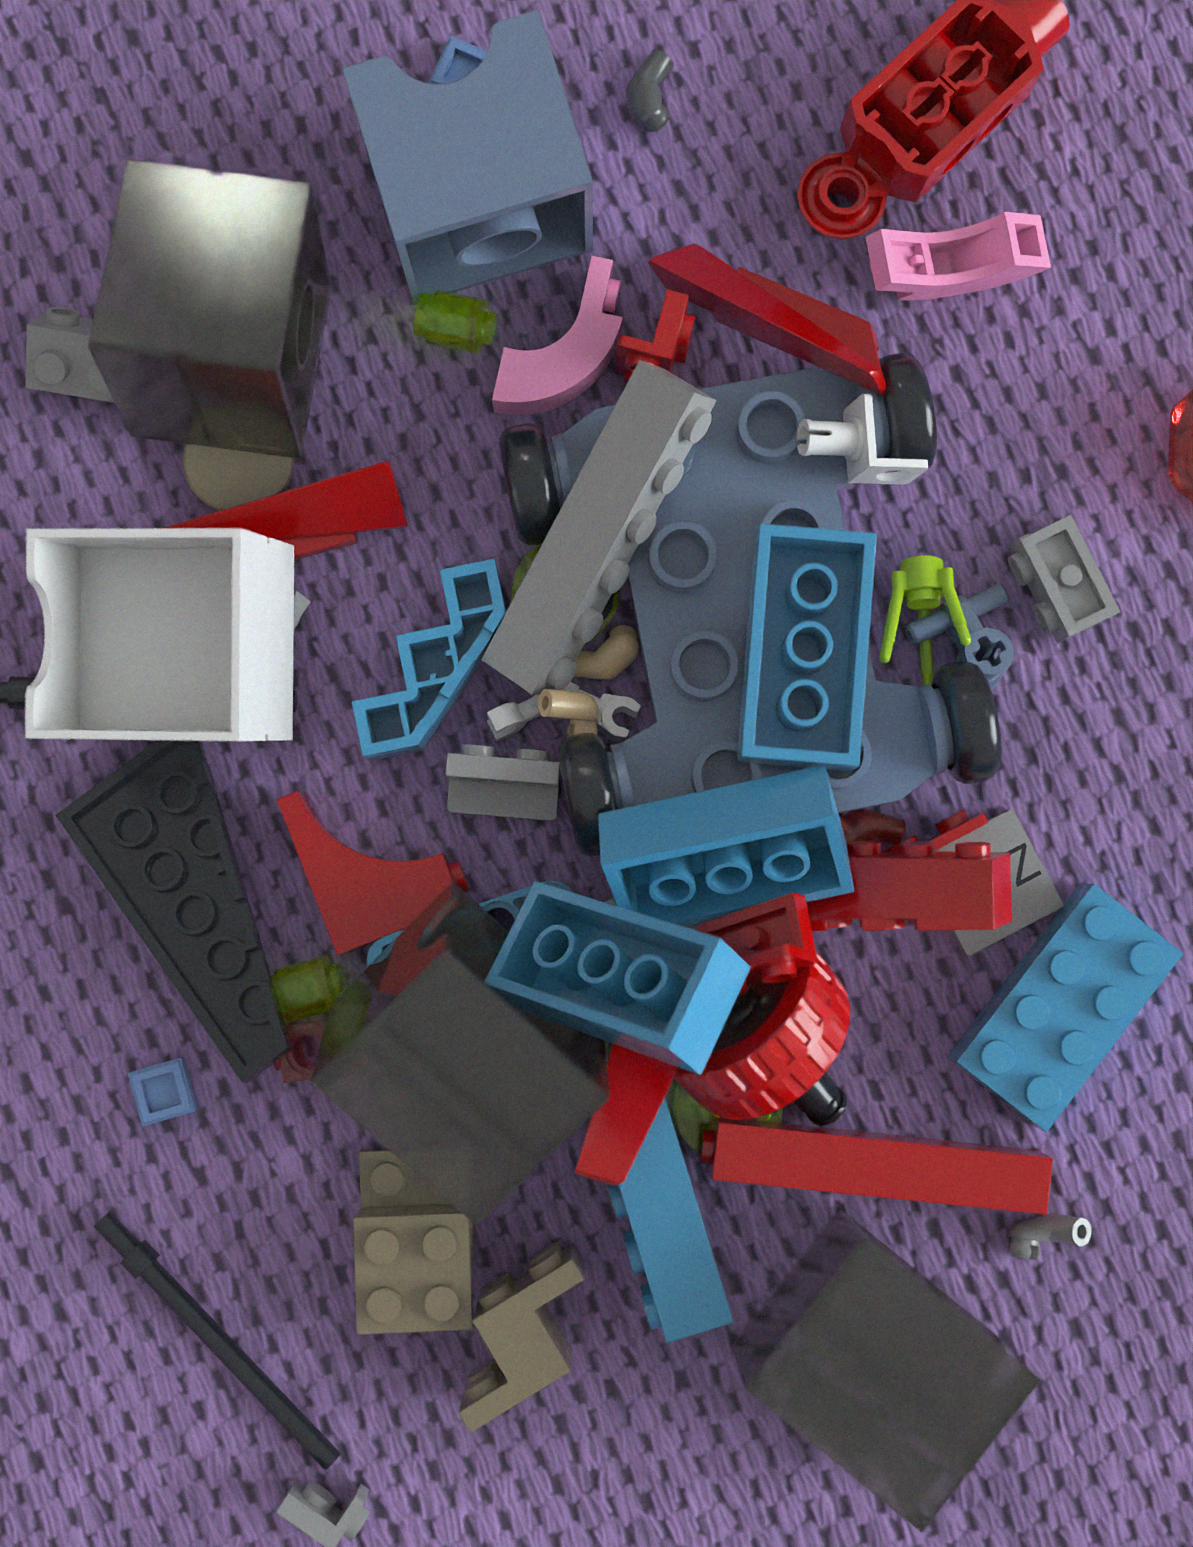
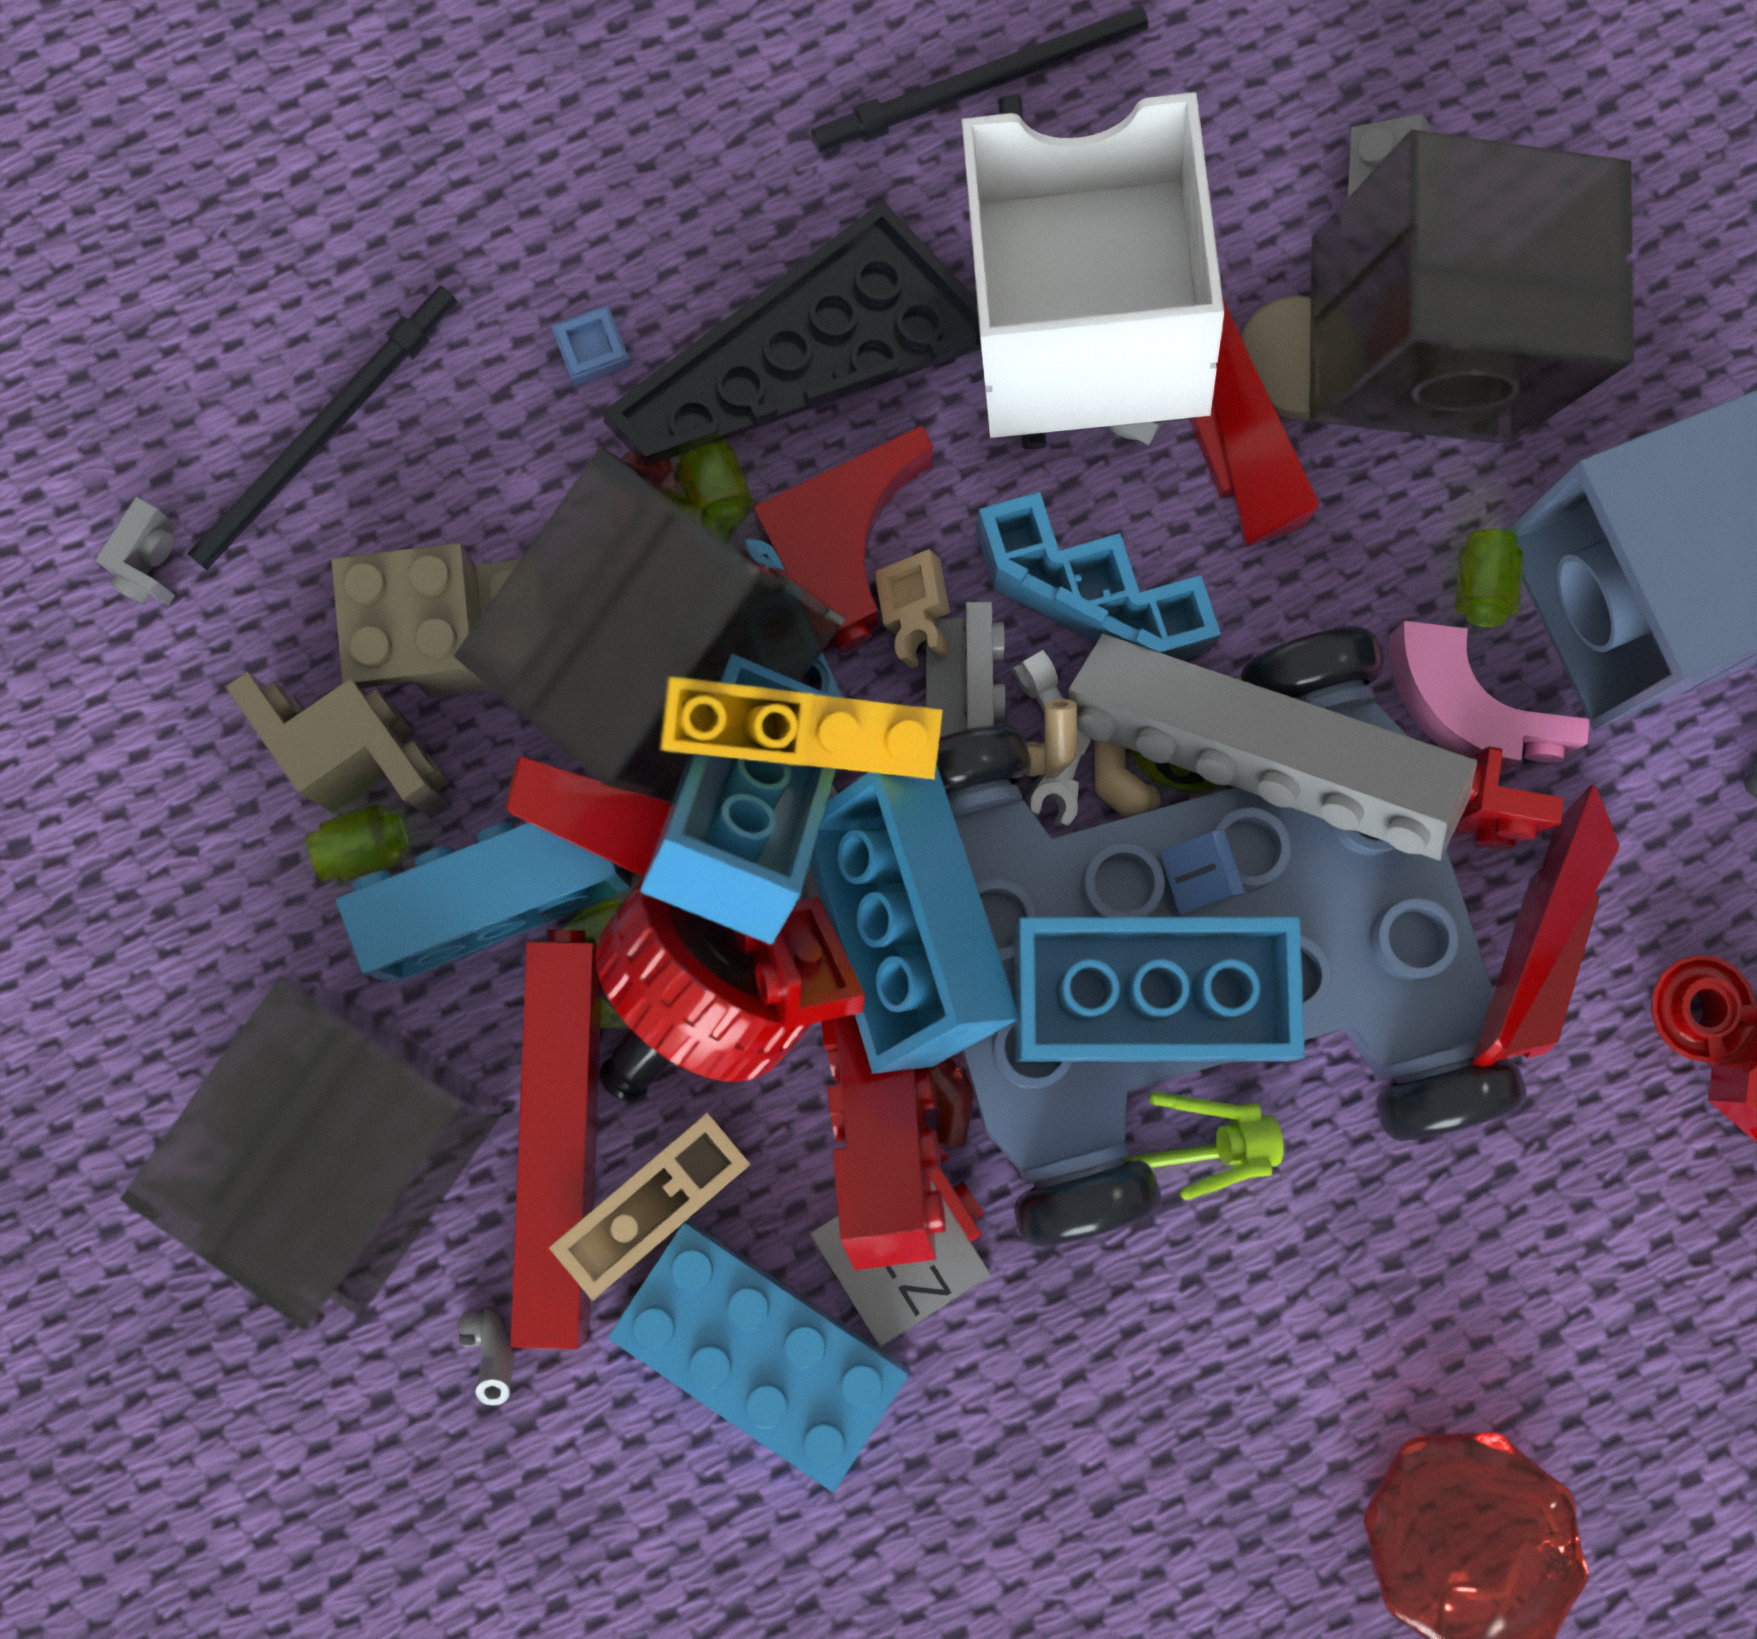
camera: 85 degrees right, 5 degrees down
(430, 824) = (910, 599): none -> tan plate
(571, 927) = (800, 728): none -> yellow slope
(605, 1326) = (357, 844): none -> clear neon green brick
(702, 598) = (1202, 872): none -> medium blue tile
(857, 442) = (1410, 1037): white bracket -> none
(940, 1088) = (649, 1206): none -> tan slope
(958, 259) = (1644, 1155): bright pink arch -> none
(984, 641) = (1188, 1216): sand blue piece -> none
(1061, 579) = (1273, 1314): light grey bracket -> none

